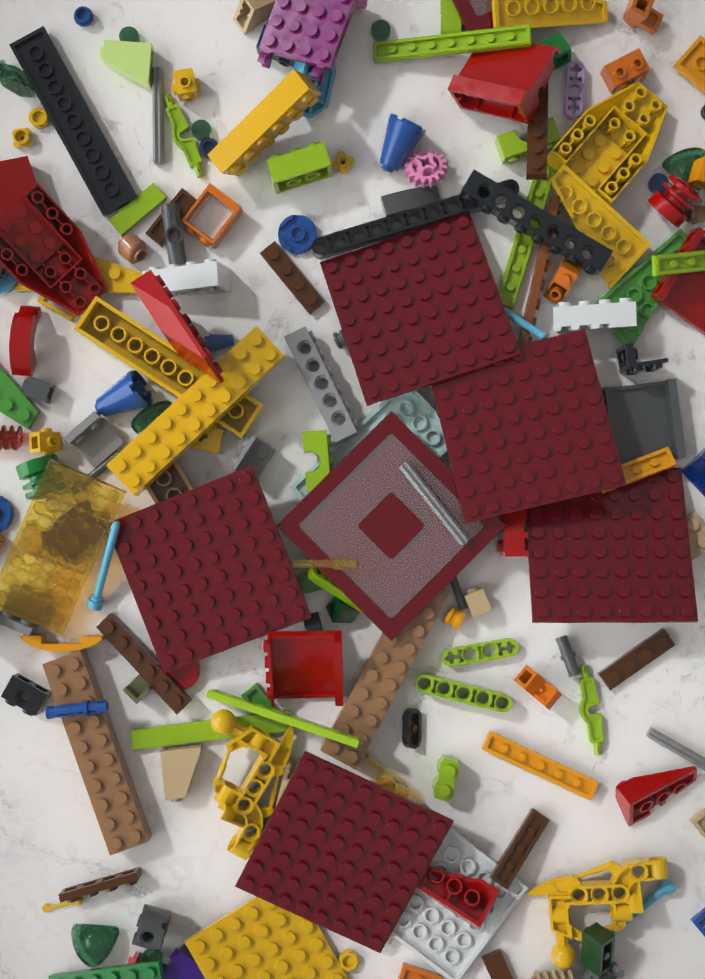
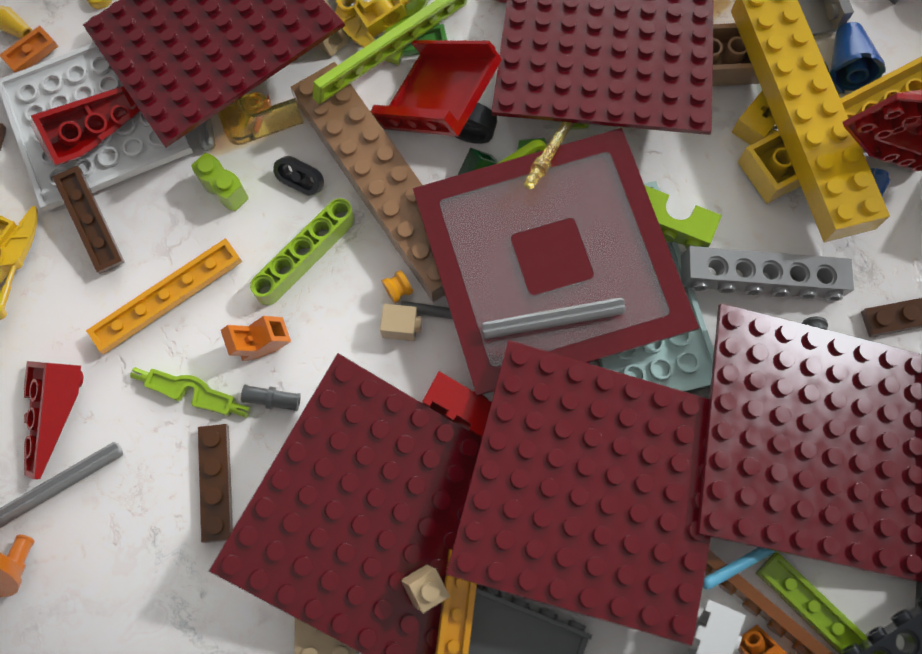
camera: 120 degrees right, 15 degrees down
(254, 453) = (714, 157): light grey bracket -> none
(479, 649) = (335, 296): lime beam -> none
(634, 495) = (425, 588): none -> tan brick

